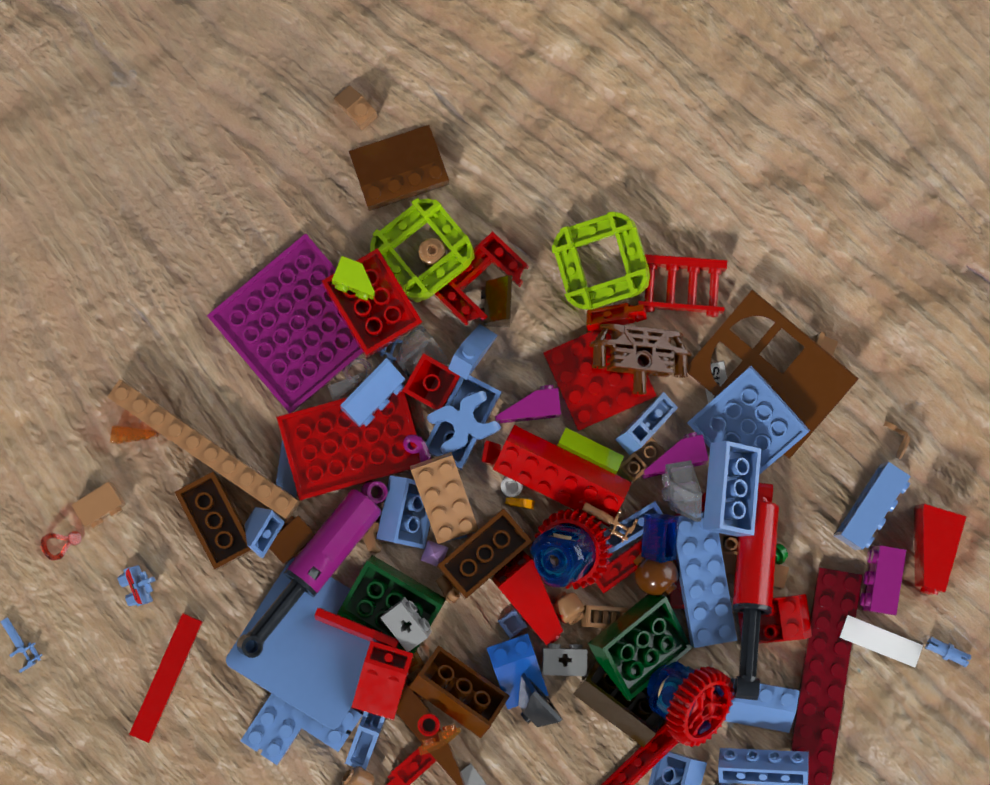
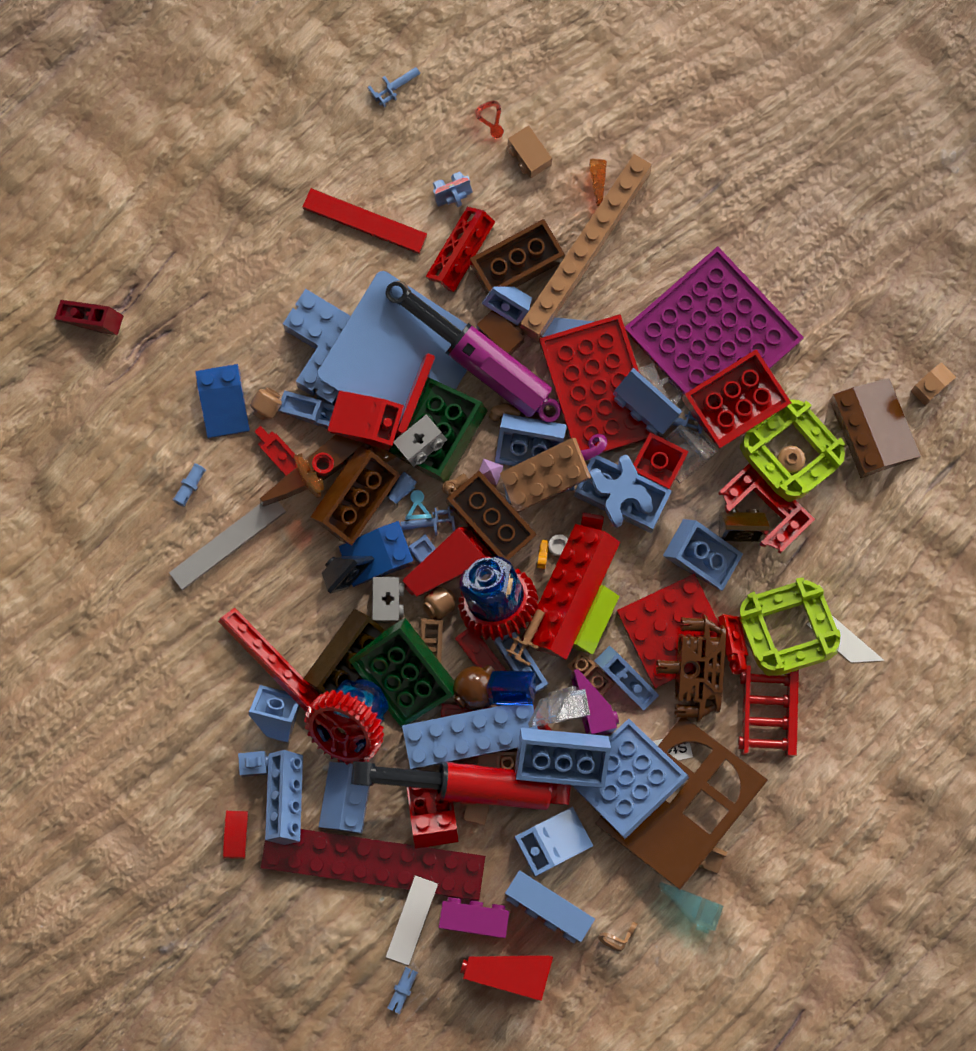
camera: 90 degrees right, 5 degrees down
(200, 575) = (463, 249): none -> red fence
(353, 277) = (760, 378): lime slope -> none
(449, 643) = (402, 487): none -> medium blue cone
(458, 628) = (417, 497): none -> medium azure piece
(472, 351) = (693, 500): medium blue slope -> none
(485, 618) = (429, 521): none -> medium blue piece
(524, 343) = (703, 553): none -> medium blue slope
(536, 406) = (640, 564): magenta slope -> none
(618, 201) = (852, 647): none -> white sticker
(781, 554) = (498, 813): green plate -> none
(807, 500) = (553, 841): none -> medium blue slope
(874, 360) = (695, 908): none -> clear light blue slope

